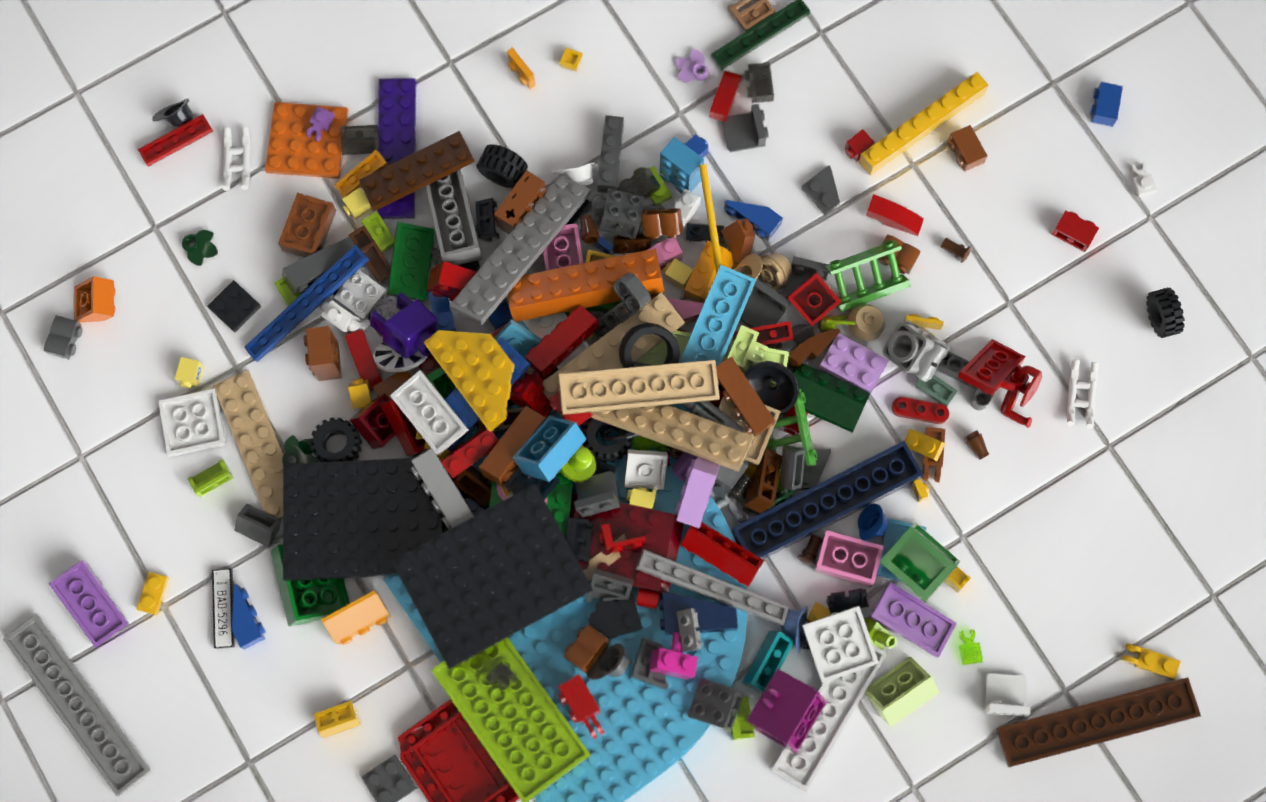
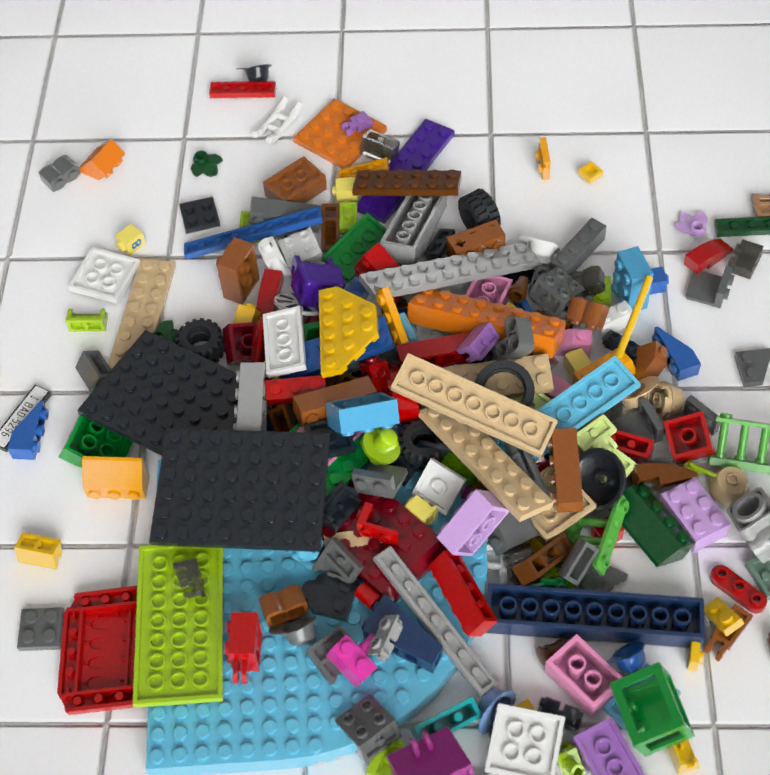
camera: 35 degrees right, 20 degrees down
(506, 332) = (391, 315): none -> light orange plate
(597, 315) = (479, 342): none -> medium lavender hinge

